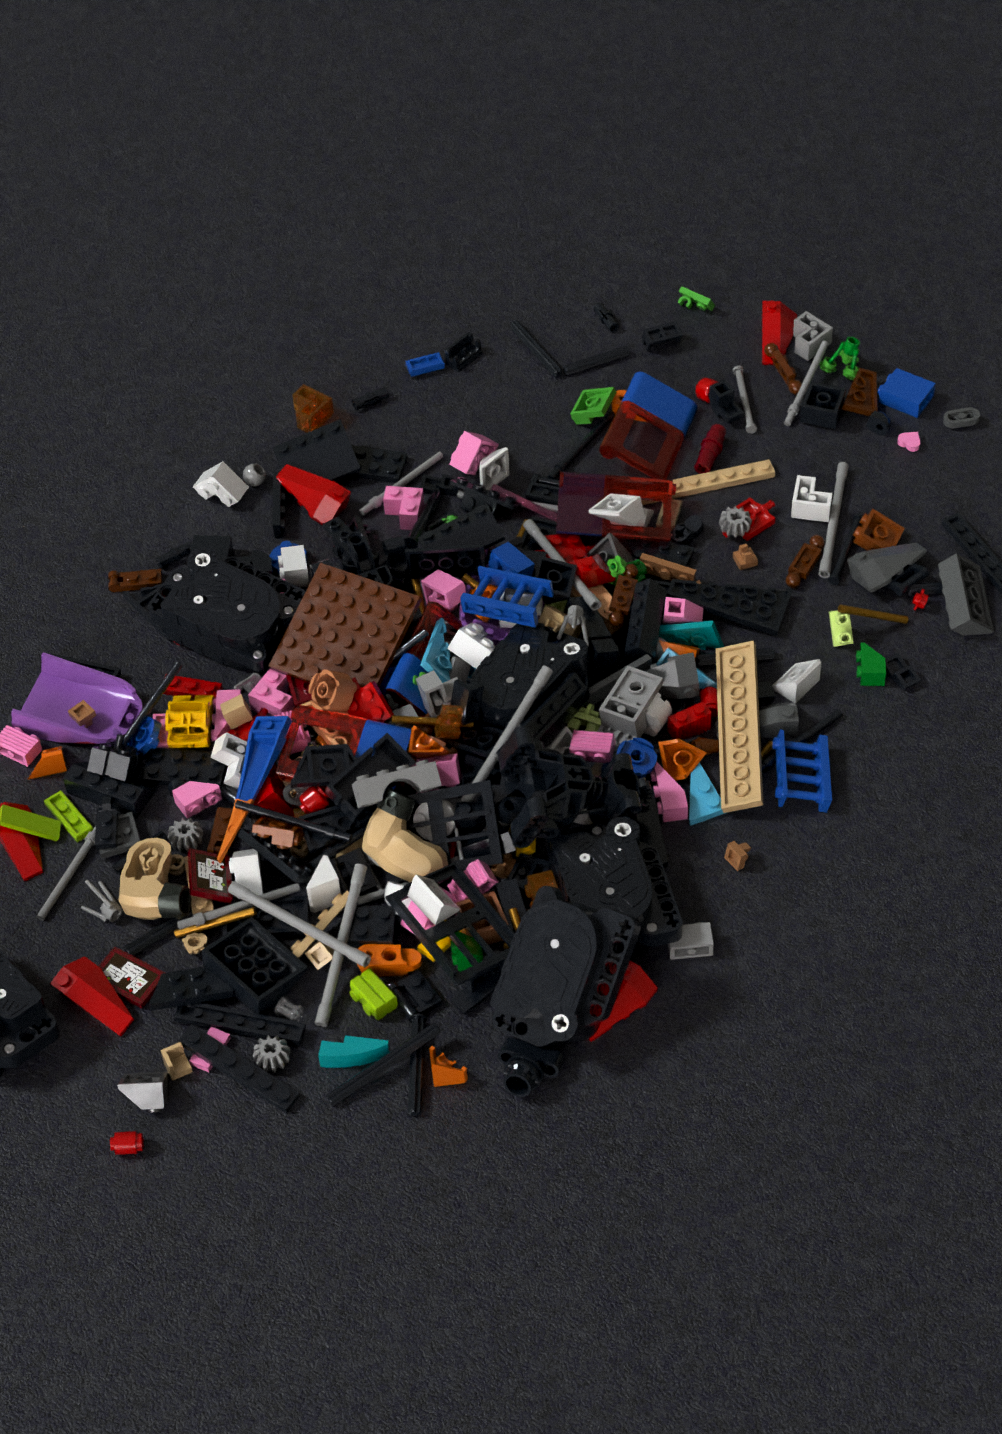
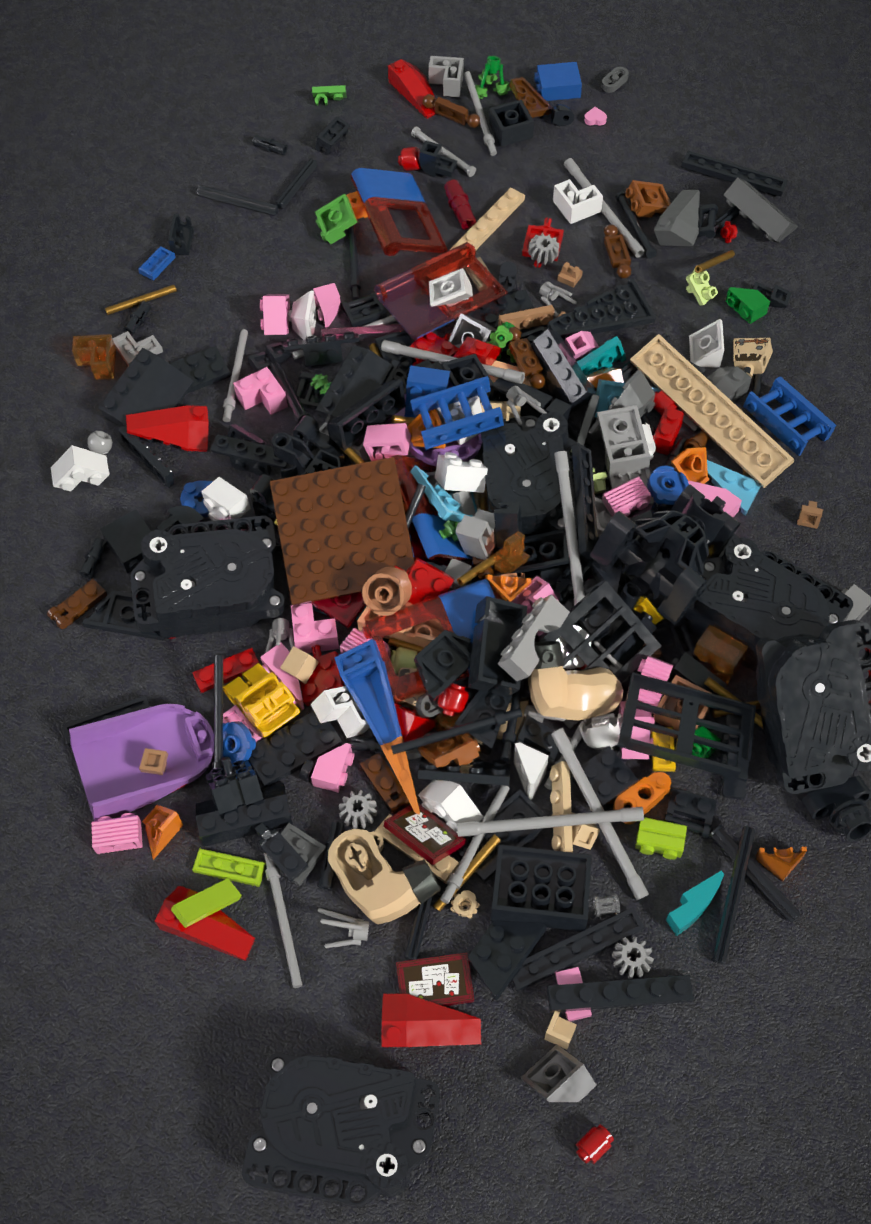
camera: 40 degrees left, 10 degrees up
(352, 425) = (129, 348): none -> light grey plate
(389, 386) = (136, 301): none -> pearl gold bar
(431, 899) = (658, 720): white slope -> none
(522, 468) = (328, 303): none -> bright pink slope
(712, 562) = (551, 292): none -> light grey plant
(822, 707) = (752, 354): none -> tan torso

